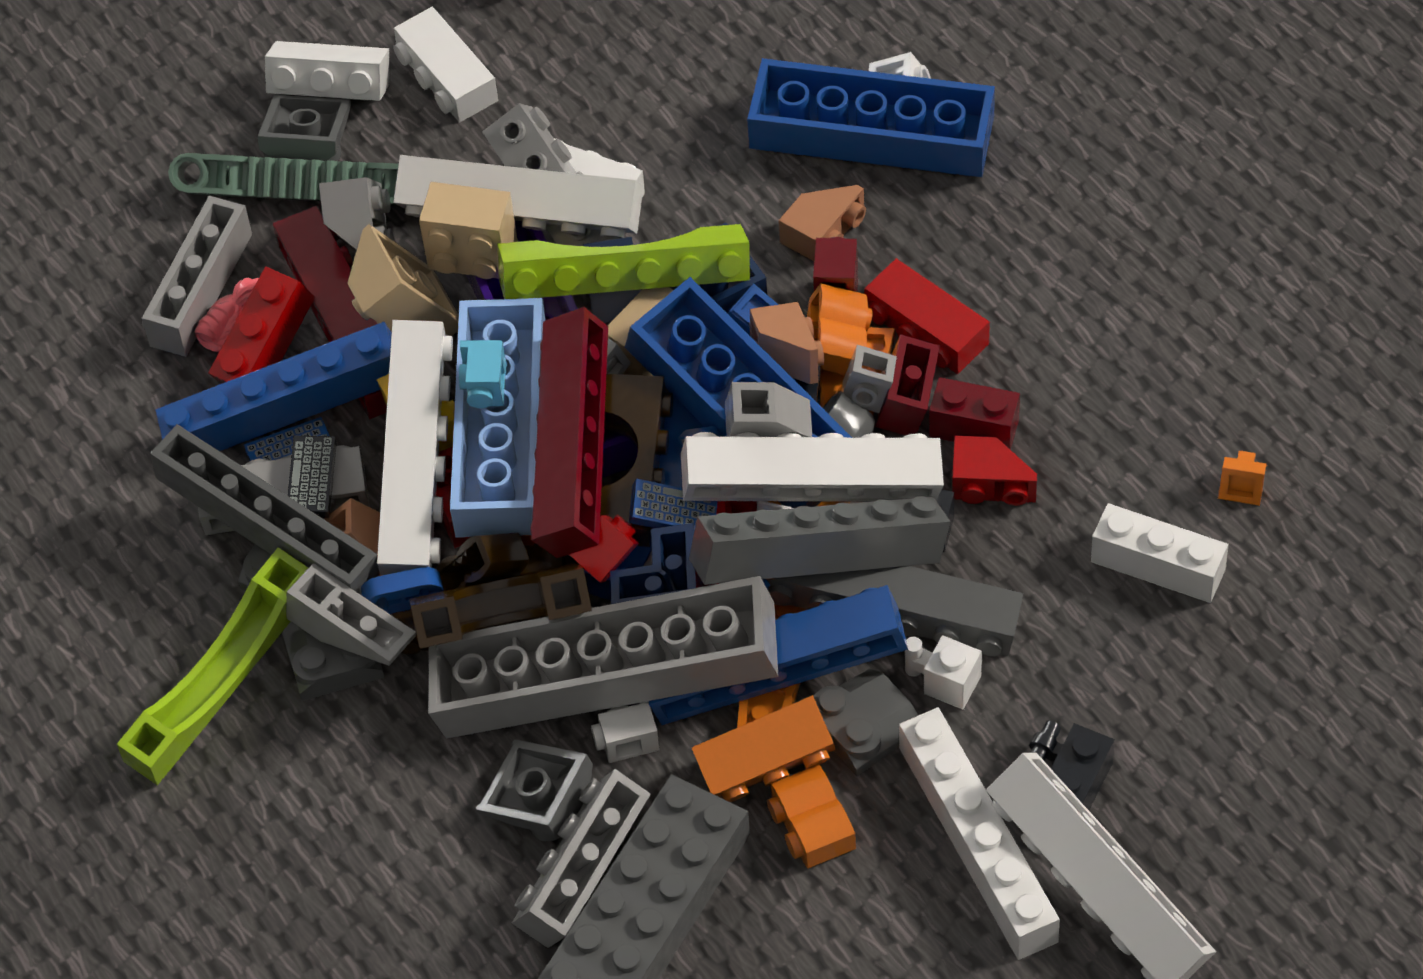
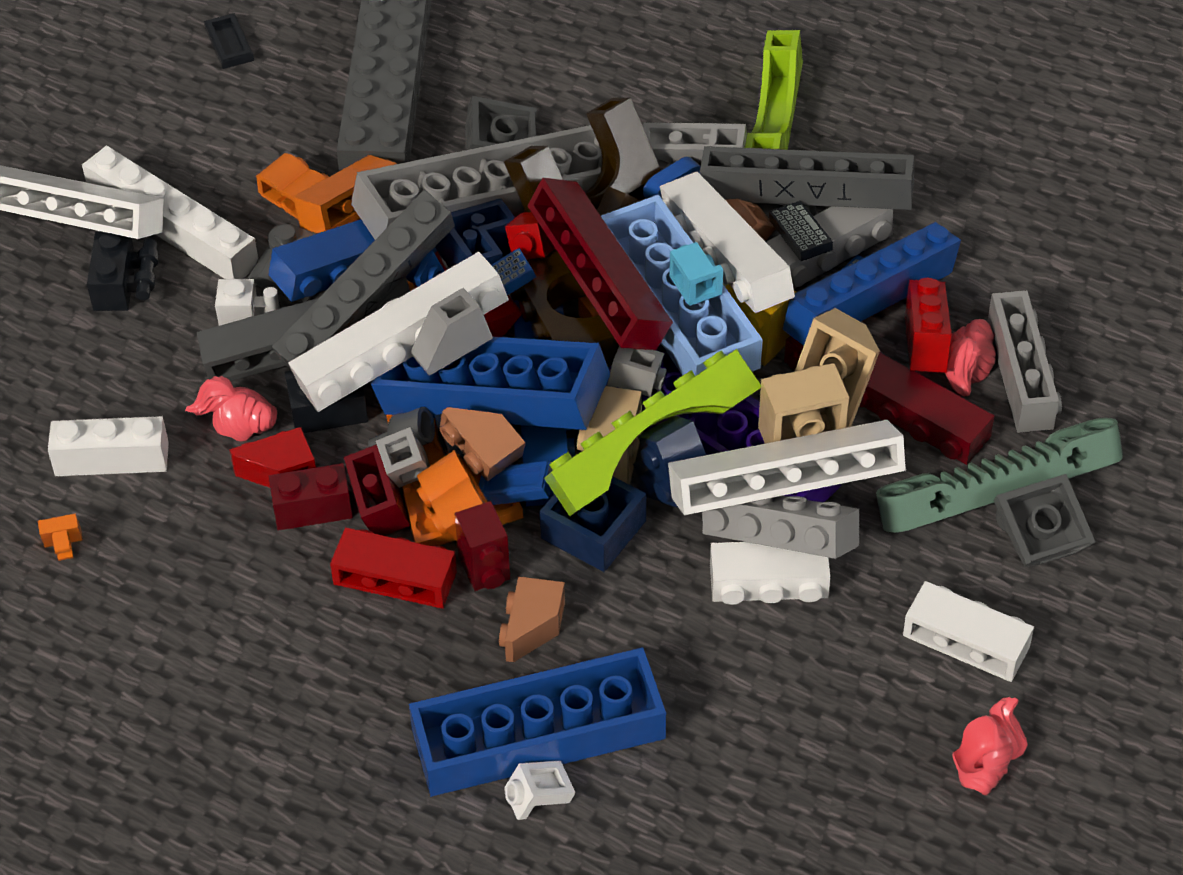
camera: 150 degrees right, 5 degrees down
(327, 70) = (1063, 572): white brick -> none
(353, 205) = (929, 427): light grey slope -> none
(580, 858) = (441, 97): light grey brick -> none
(1005, 552) = (236, 410): none -> coral hair

